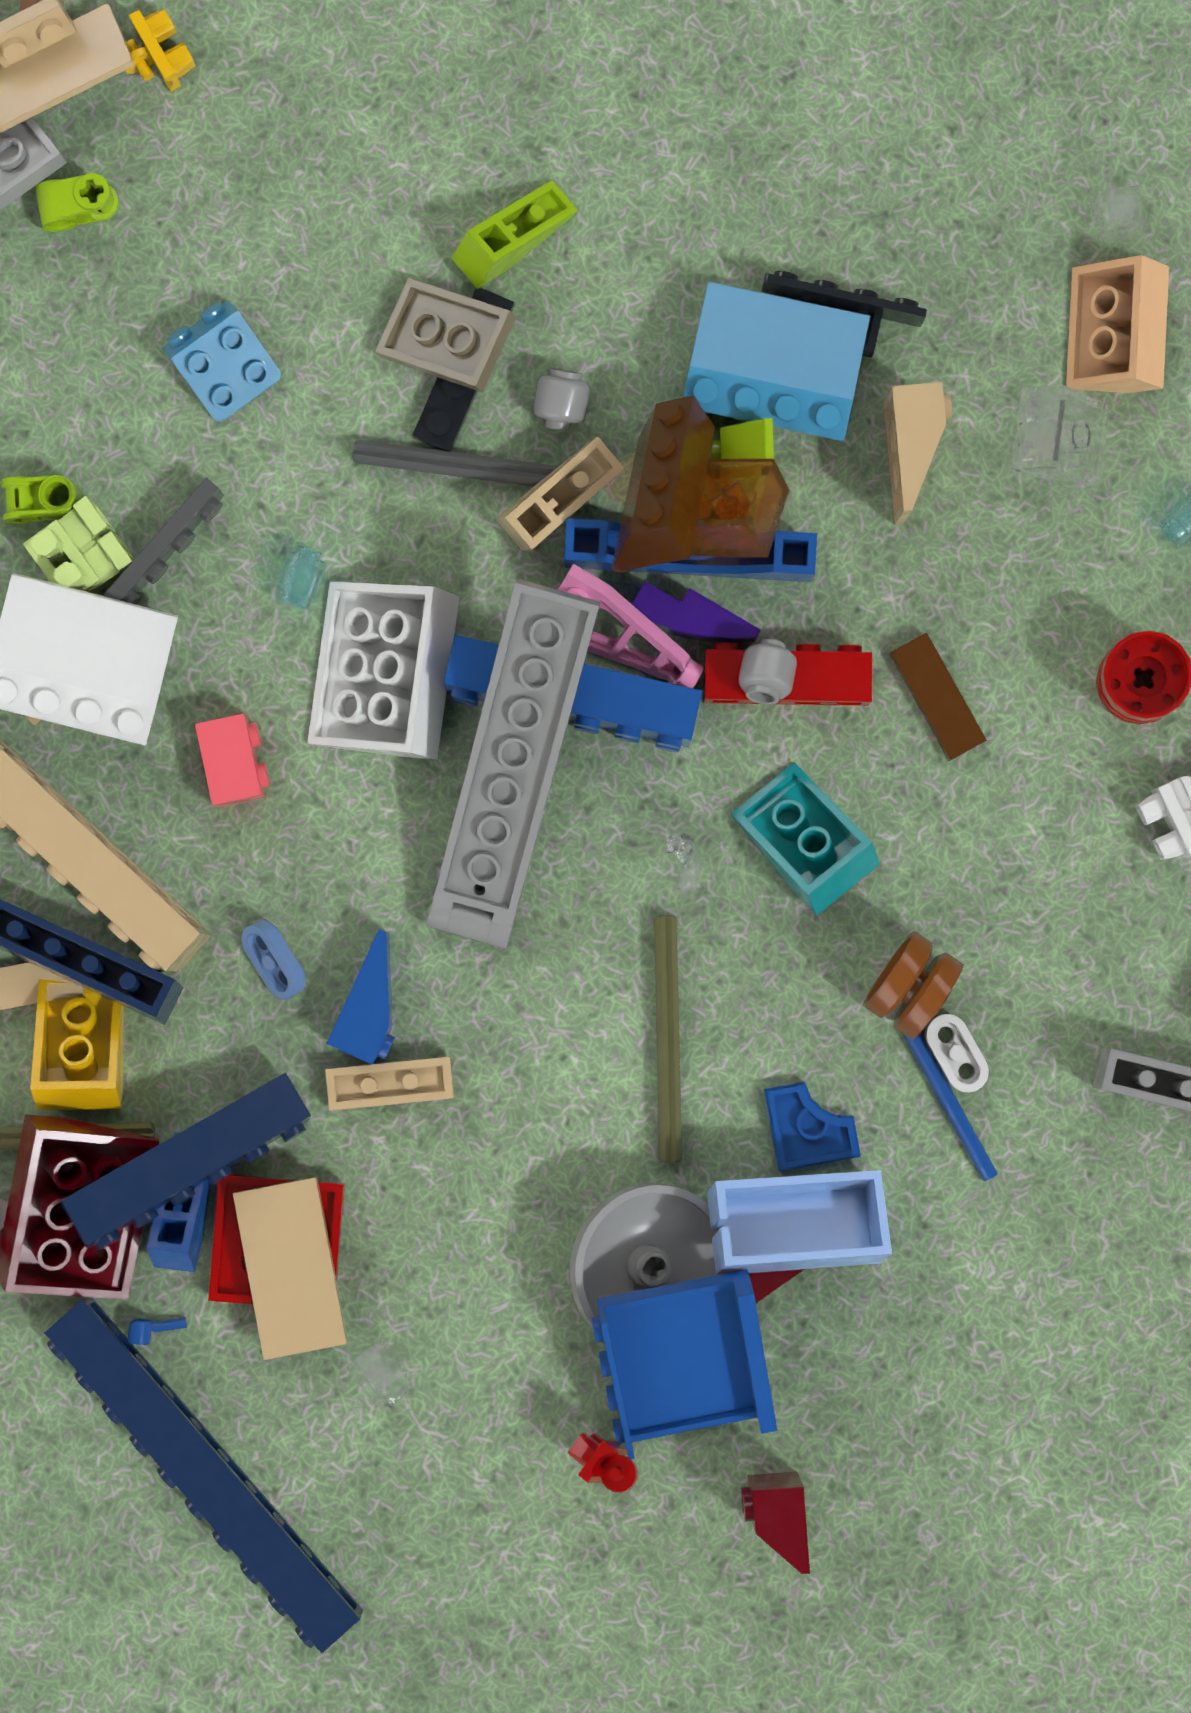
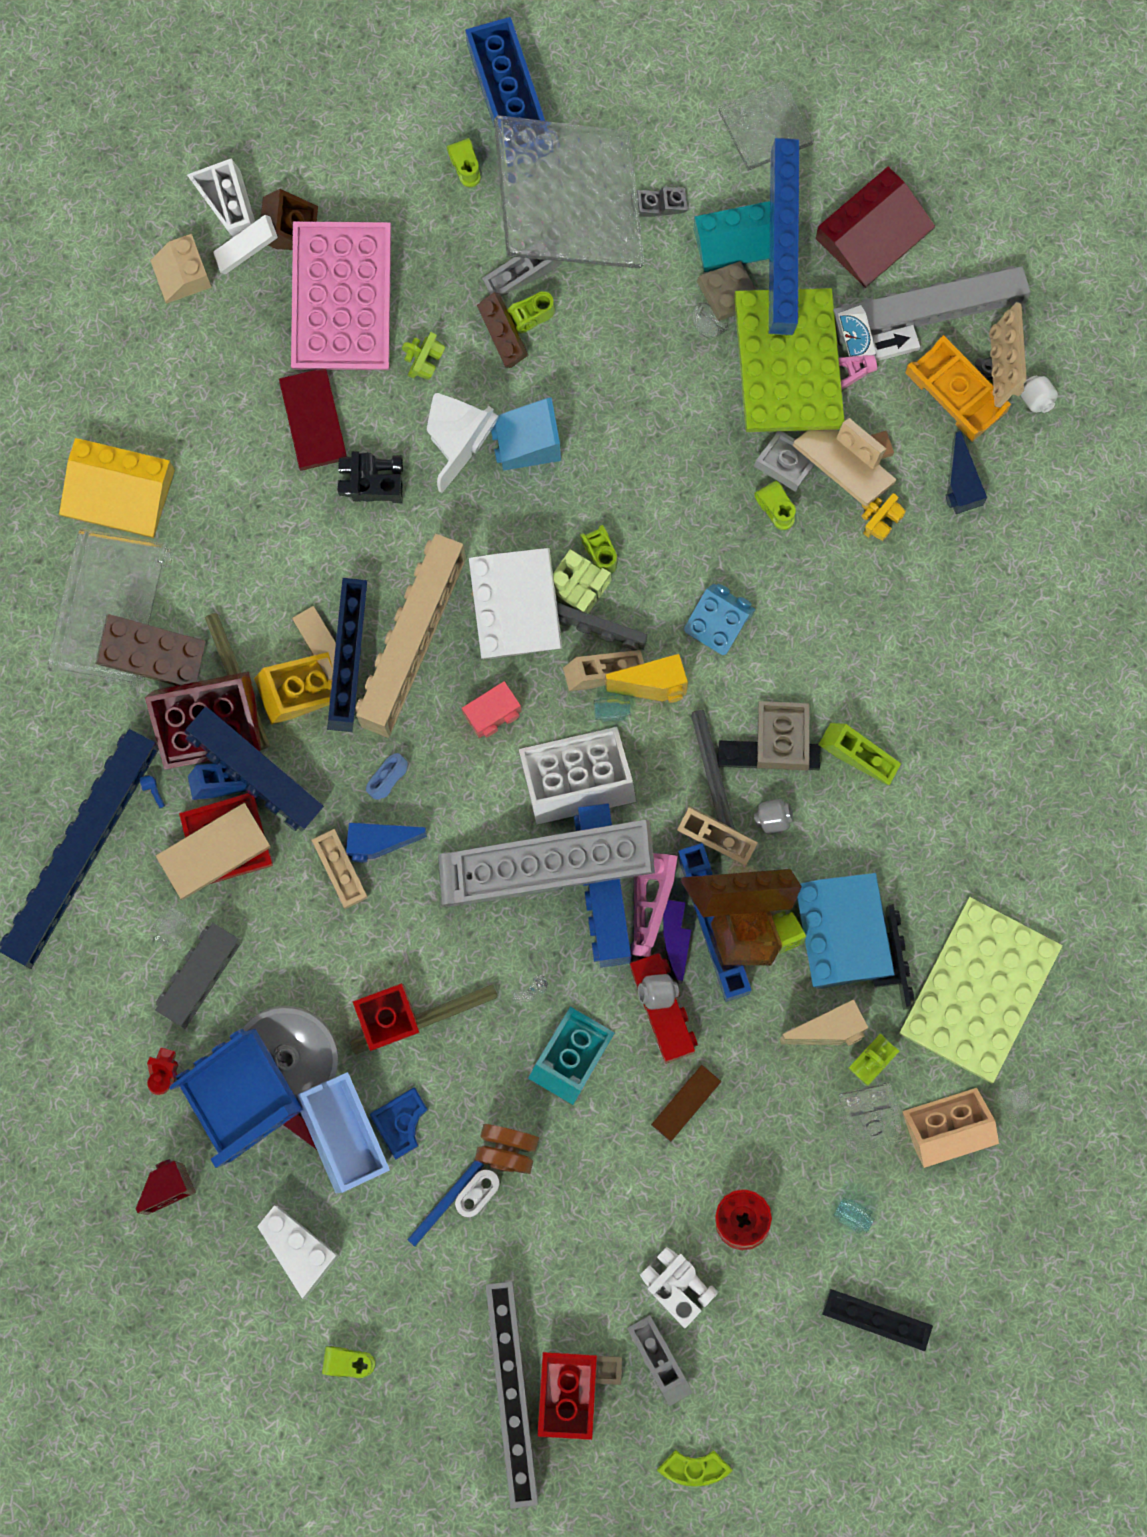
camera: 75 degrees right, 10 degrees down
(234, 566) = (590, 671): none -> tan slope
(284, 494) = (653, 680): none -> yellow slope
(473, 1357) = (198, 975): none -> dark grey brick
(647, 1093) = (386, 1016): none -> red slope
(933, 201) = (980, 990): none -> yellowish green plate
(942, 1349) = (297, 1250): none -> white wedge
(980, 397) = (873, 1059): none -> lime hips
(1129, 1338) = (342, 1362): none -> lime piece

